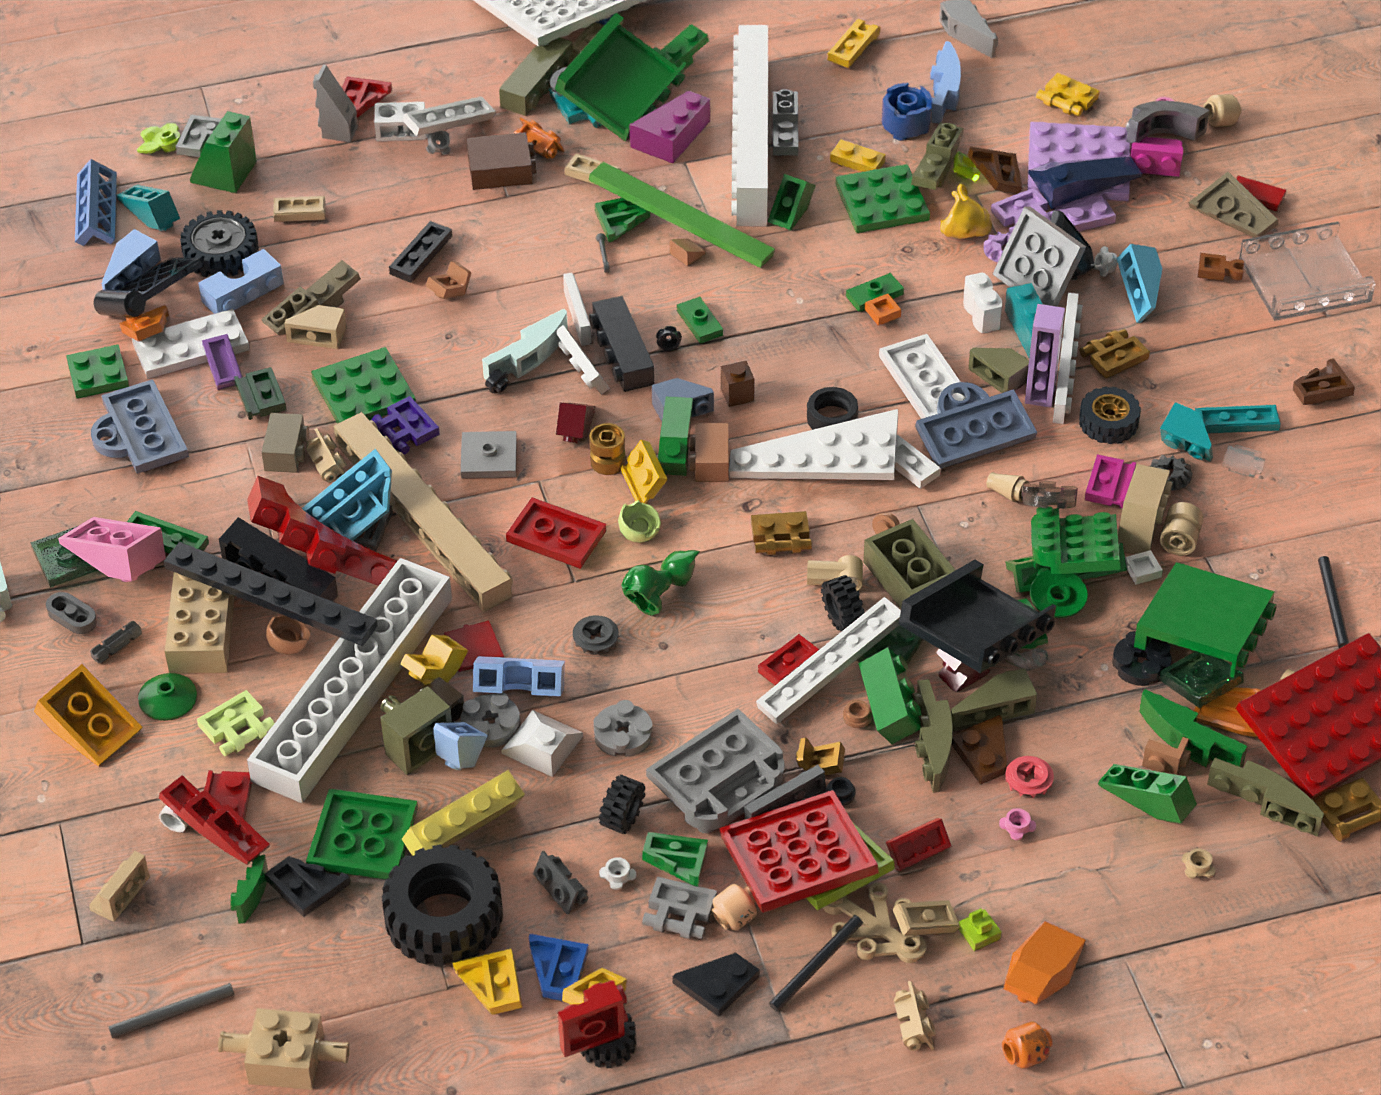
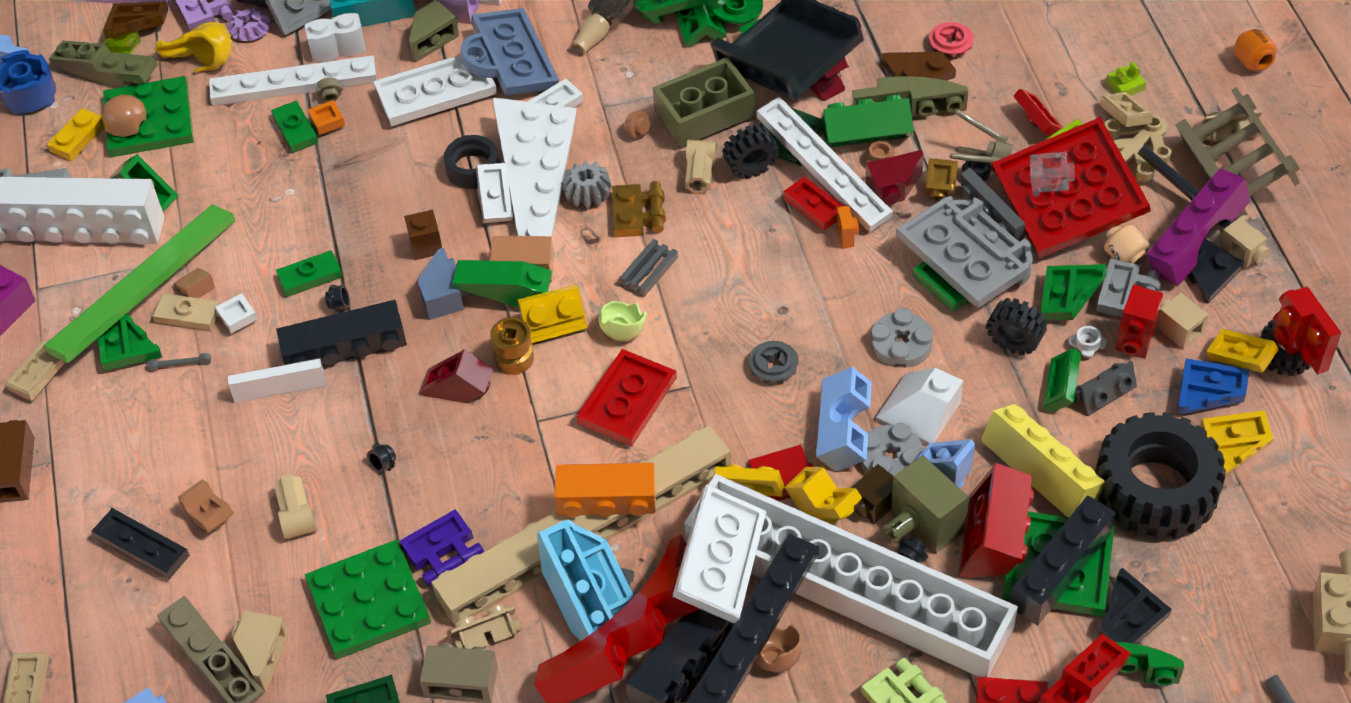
camera: 85 degrees left, 5 degrees up
(348, 819) = (1062, 559): none -> black brick
(352, 567) = (720, 554): none -> white tile
(374, 729) = (912, 549): none -> black plate
(394, 776) = (996, 523): none -> red slope
(434, 504) = (605, 489): none -> orange brick
(441, 335) = (295, 511): none -> tan piece
(456, 610) = (762, 480): none -> yellow plate
(488, 454) = (495, 466): light grey plate -> none
(536, 345) = (334, 422): light aqua slope -> none
(565, 846) = (1062, 380): none -> green plate
(581, 361) = (363, 375): white plate -> none
(623, 899) = (1139, 321): none -> red brick
(638, 946) = (1181, 320): none -> tan brick
(645, 584) = (691, 287): green animal -> none
(651, 277) = (236, 313): none -> white plate
(656, 250) = (186, 312): none -> tan plate
(711, 542) = (644, 265): none -> dark grey tile
(742, 1009) = (1244, 242): none -> tan brick
(755, 682) = (846, 226): none -> orange plate
(773, 968) = (1179, 246): none -> magenta arch
(789, 423) = (494, 193): none -> white plate
(802, 827) = (1050, 172): none -> clear brick
(804, 491) = (586, 184): none -> light grey gear
(820, 719) = (894, 176): none -> dark red slope
(850, 987) = (1208, 156): none -> dark tan fence
(859, 802) = (995, 150): none -> dark tan plant
(867, 174) = (123, 115): none -> nougat hair
(919, 308) = (328, 89): none -> dark tan plate
(934, 286) = (290, 80): none -> white plate
(1004, 695) = (869, 56): olive slope -> none
(1019, 817) = (1006, 49): bright pink plate -> none
(1043, 963) = (1164, 38): orange piece -> none

